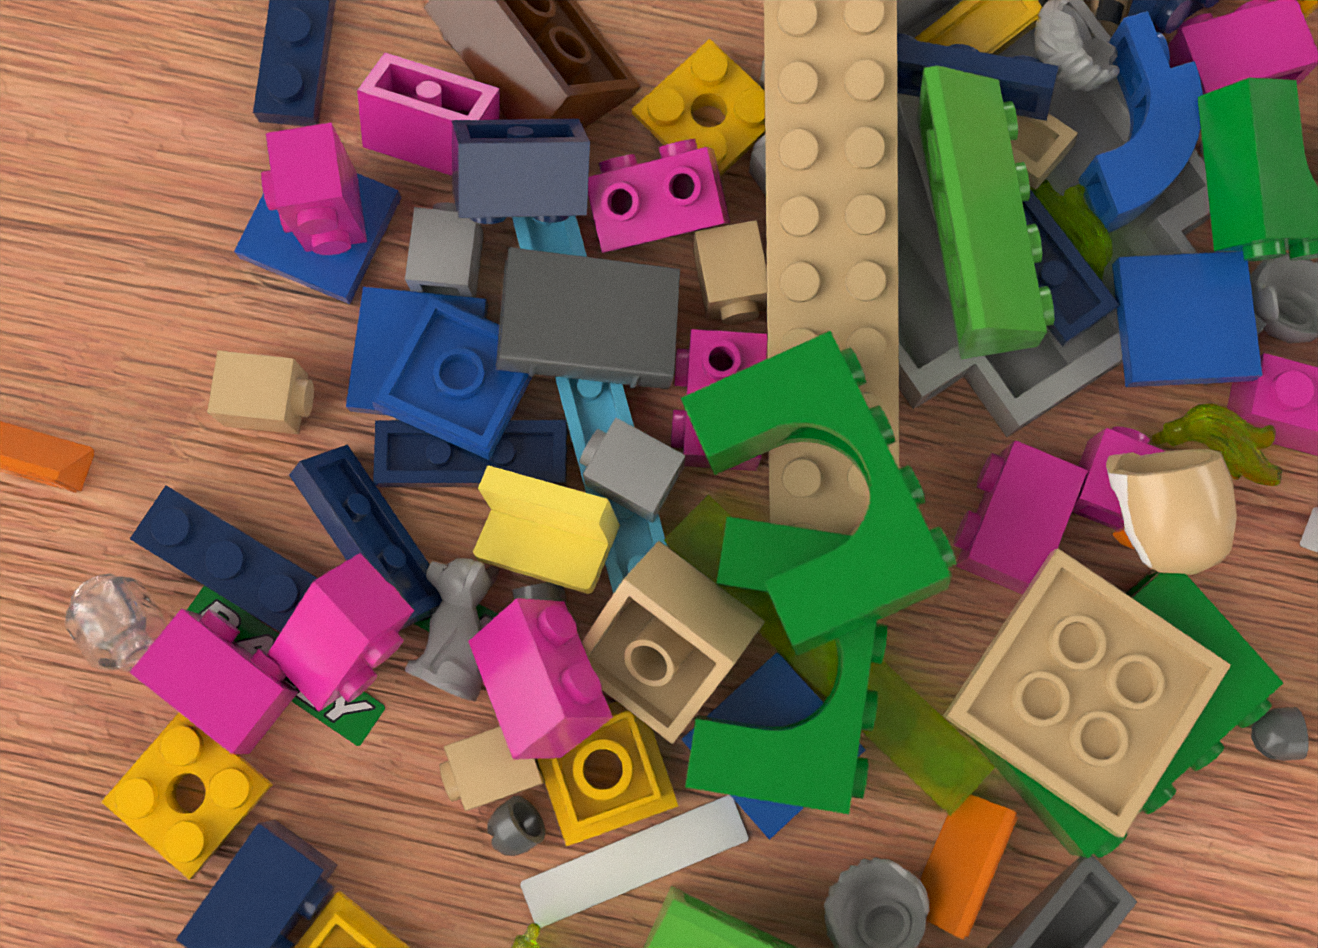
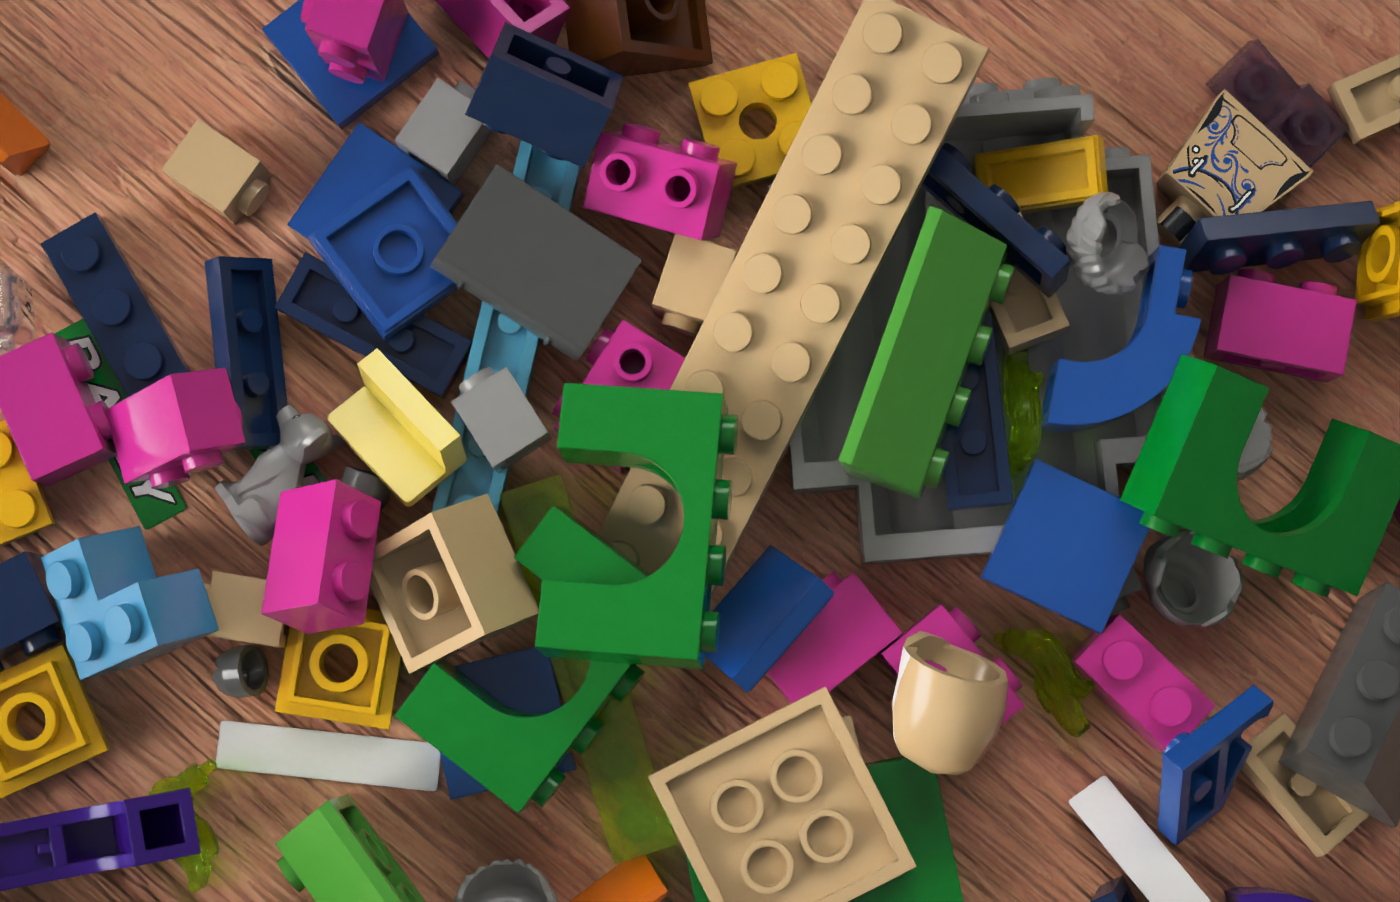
camera: 30 degrees right, 5 degrees up
(375, 829) = (116, 605): none -> dark azure brick
(973, 507) = (765, 616): none -> blue tile

